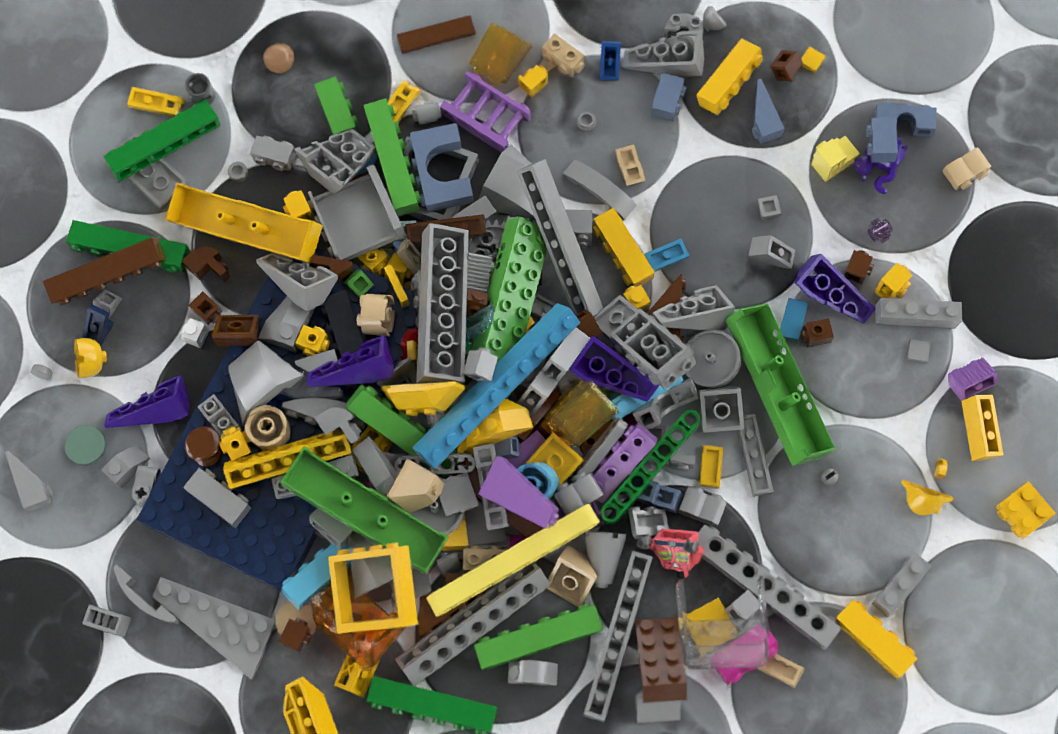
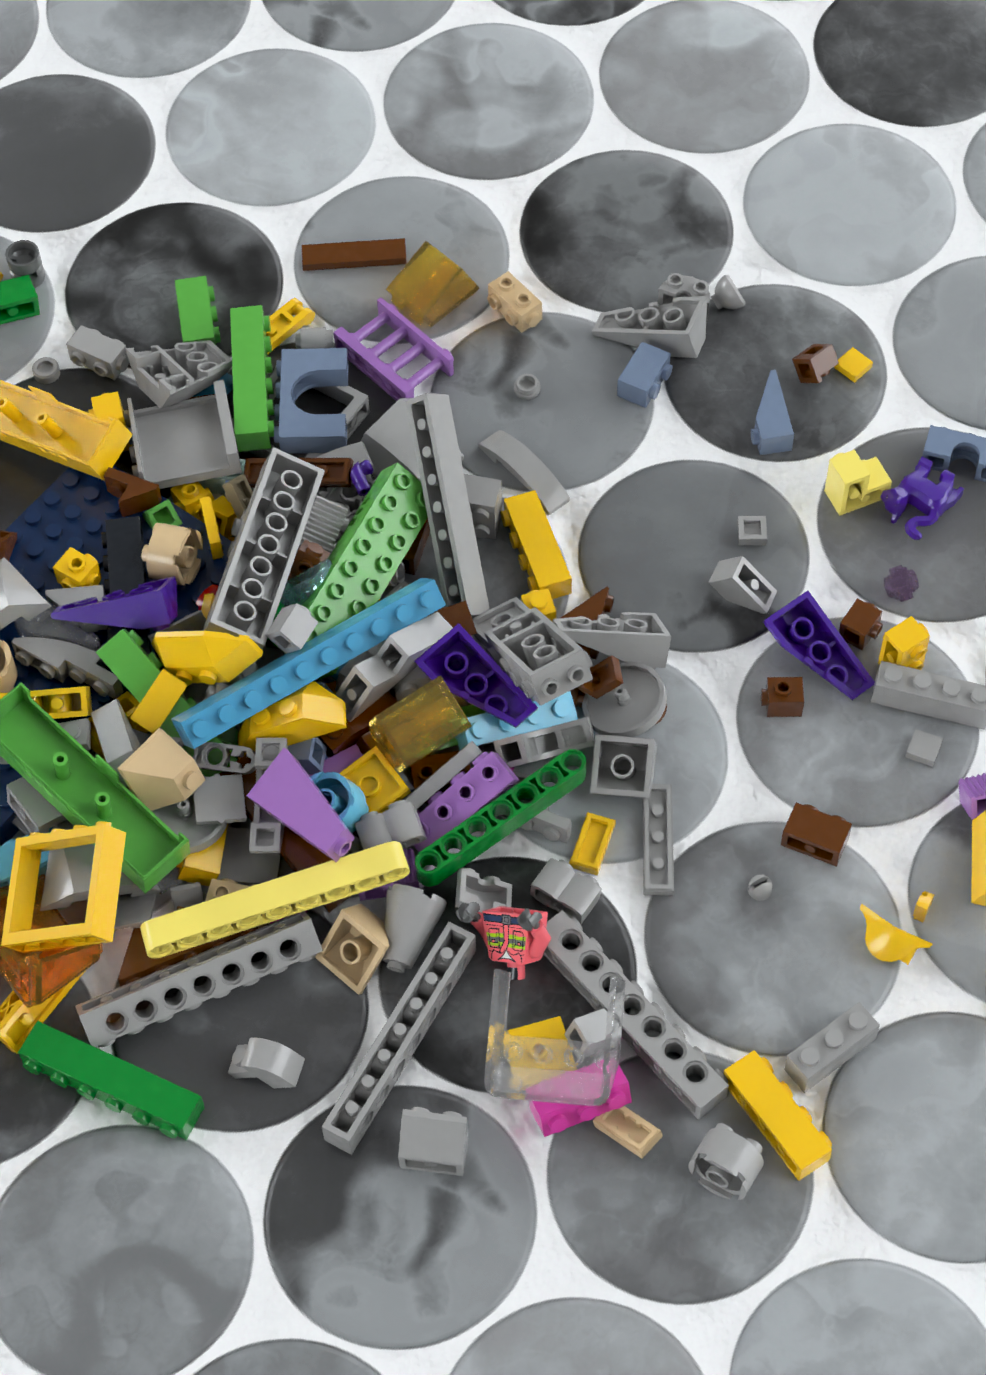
camera: 10 degrees right, 15 degrees down
(278, 58) = (139, 247): medium nougat hair -> none
(285, 325) = (74, 530): light grey wedge -> none
(300, 282) = (82, 497): light grey wedge -> none
(336, 417) = (81, 664): light grey brick -> none
(398, 433) = (159, 701): none -> yellow tile
(490, 226) = (358, 476): none -> dark purple arm
(533, 80) = (468, 326): yellow brick -> none
(538, 637) = (287, 1018): bright green brick -> none
(610, 60) = (577, 318): blue slope -> none
(629, 165) = (572, 448): tan slope -> none
(657, 495) = (506, 864): sand blue slope -> none
(660, 660) = (449, 1073): reddish brown brick -> none
(667, 255) = (596, 565): dark azure plate -> none
(698, 344) = (605, 676): none -> reddish brown bracket
(729, 77) = (733, 363): yellow brick -> none
(778, 384) = (711, 750): bright green piece -> none
(793, 319) = (753, 676): dark azure tile -> none
(851, 681) = (727, 1162): none -> light grey brick
(860, 431) = (816, 833): none -> reddish brown brick
(882, 139) = (926, 467): sand blue brick -> none

